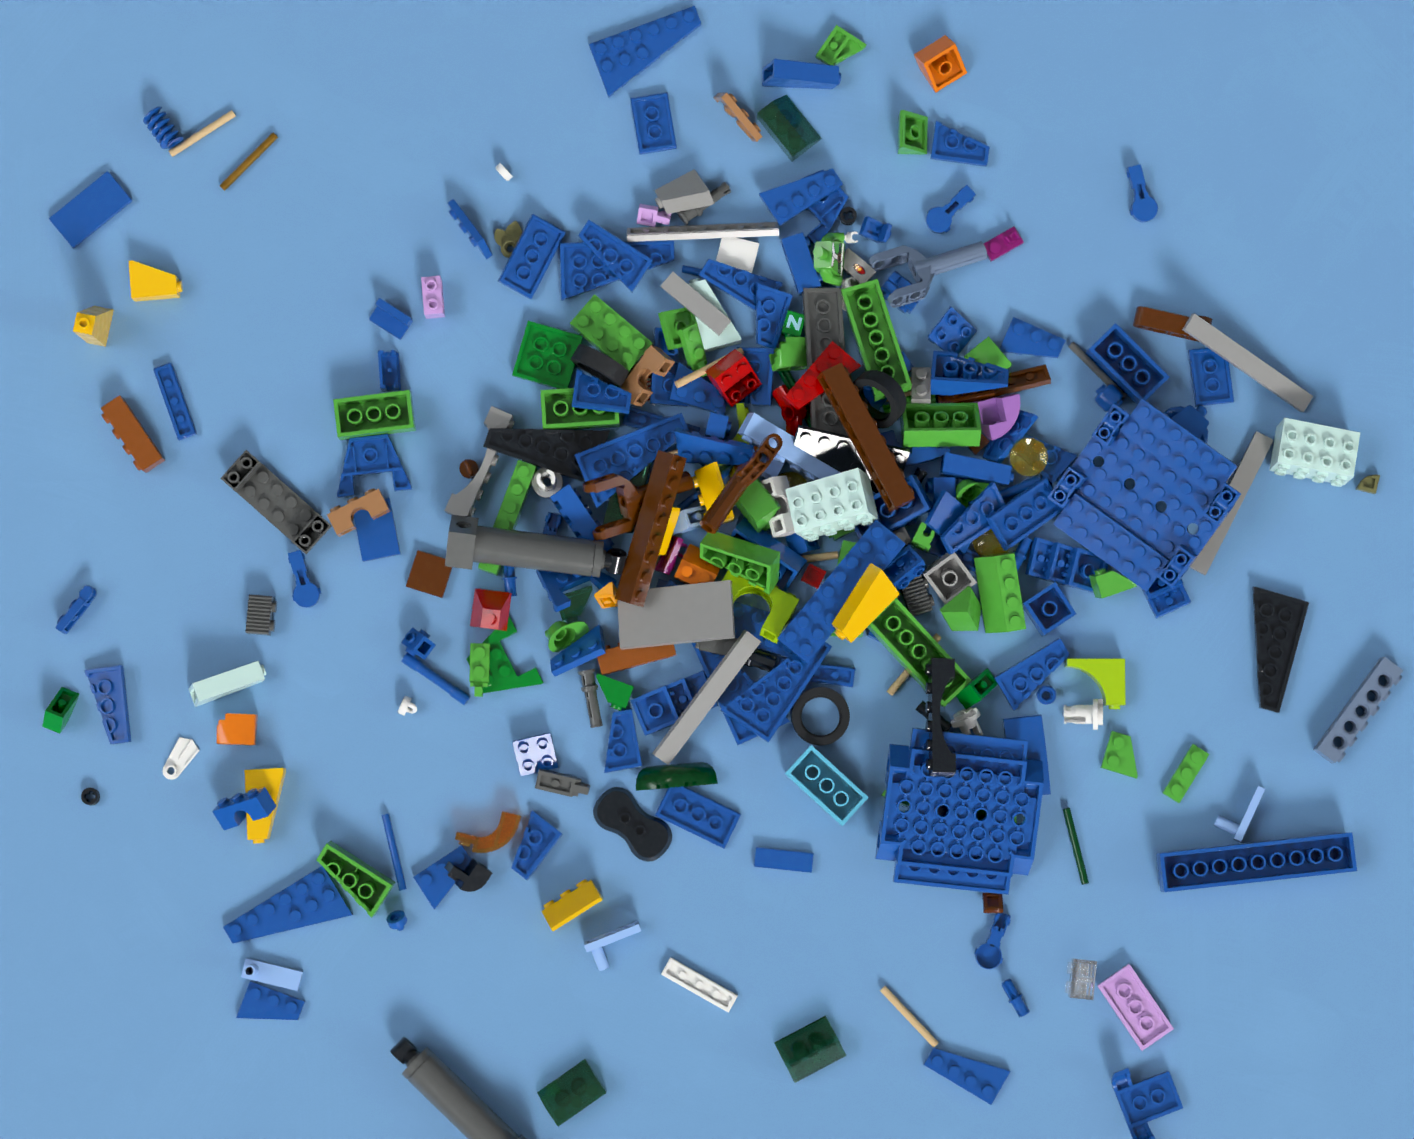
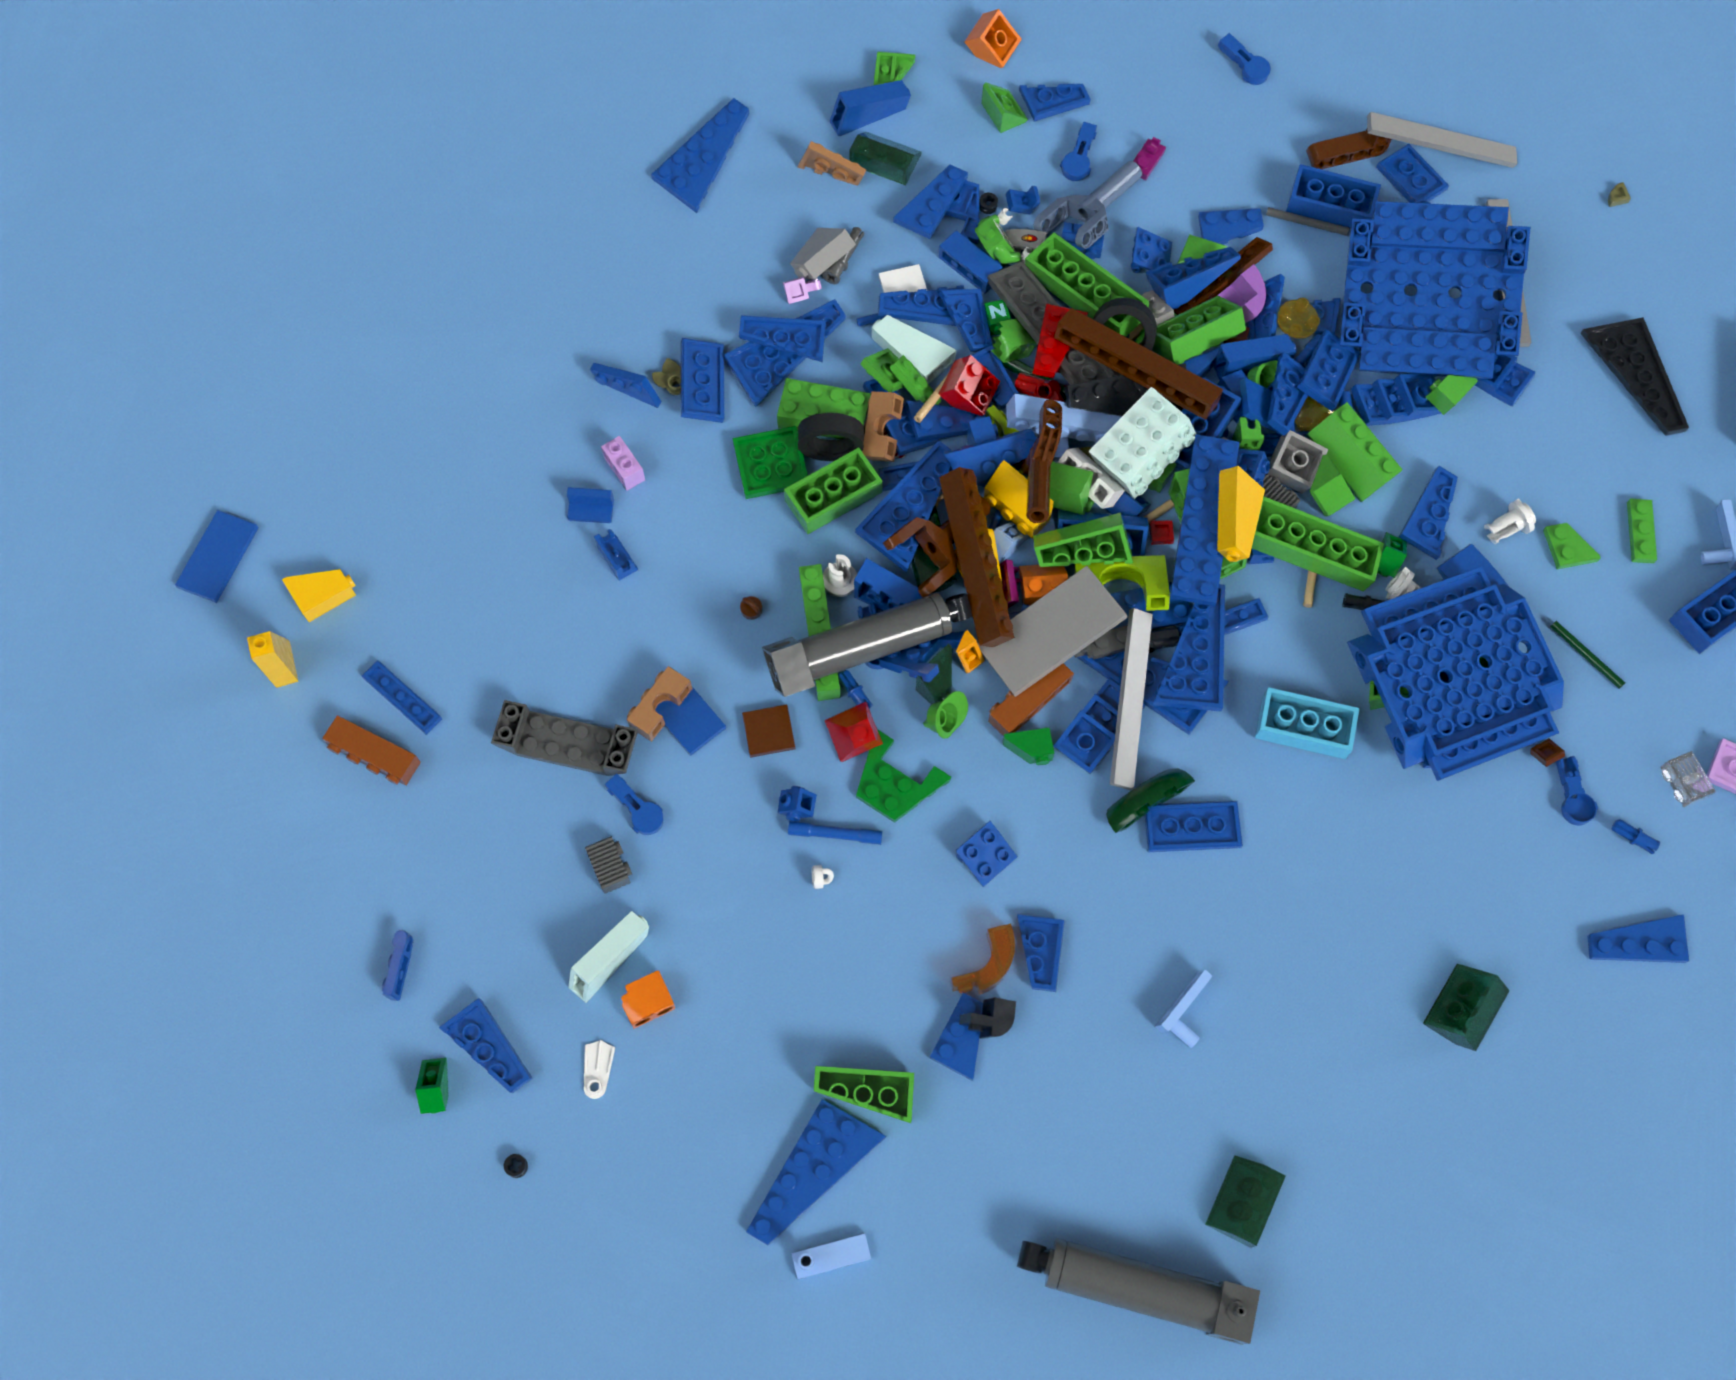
camera: 25 degrees left, 15 degrees down
(160, 129) = (256, 442): blue piece -> none
(202, 133) = (300, 432): tan bar -> none
(247, 162) = (361, 439): pearl gold bar -> none
(254, 802) = (711, 1062): blue arch -> none
(267, 1003) = (847, 1292): blue wing -> none
(273, 781) = (714, 1059): yellow slope -> none
(371, 456) = (643, 645): blue wing -> none
(374, 414) = (624, 601): bright green brick -> none
(394, 852) = (893, 1042): blue piece -> none
(397, 920) = (939, 1113): blue tile -> none
(464, 501) = (756, 550): light grey arch -> none
(479, 667) = (876, 793): bright green hinge -> none
(503, 171) = (631, 319): white tile -> none
(547, 447) = (819, 543): black wing -> none
(560, 783) = (1030, 870): dark grey hinge -> none
(571, 904) = (1120, 989): yellow slope -> none
(581, 651) = (971, 725): blue wing -> none
(589, 688) = (1003, 756): dark grey pin -> none
(597, 395) = (846, 463): blue wing -> none
(620, 814) = (1110, 870): black plate -> none
(623, 743) = (1071, 794): blue wing -> none
(653, 123) = (753, 213): blue tile -> none
(695, 303) = (892, 338): light grey tile -> none
(699, 984) = (1306, 1004): white tile -> none
(702, 231) = (858, 278): light grey tile -> none
(783, 860) = (1309, 824): blue tile -> none
(837, 699) = (1273, 642): black tyre -> none
(909, 1016) = (1543, 916): tan bar -> none
(941, 760) = (1413, 617): black arch -> none
(1048, 609) = (1411, 443): blue brick -> none
(1050, 690) = (1460, 521): blue plate -> none
(1108, 396) = (1334, 235): blue head -> none
(1108, 675) = (1504, 477): lime arch -> none
(1314, 452) = (1555, 184): light aqua brick -> none

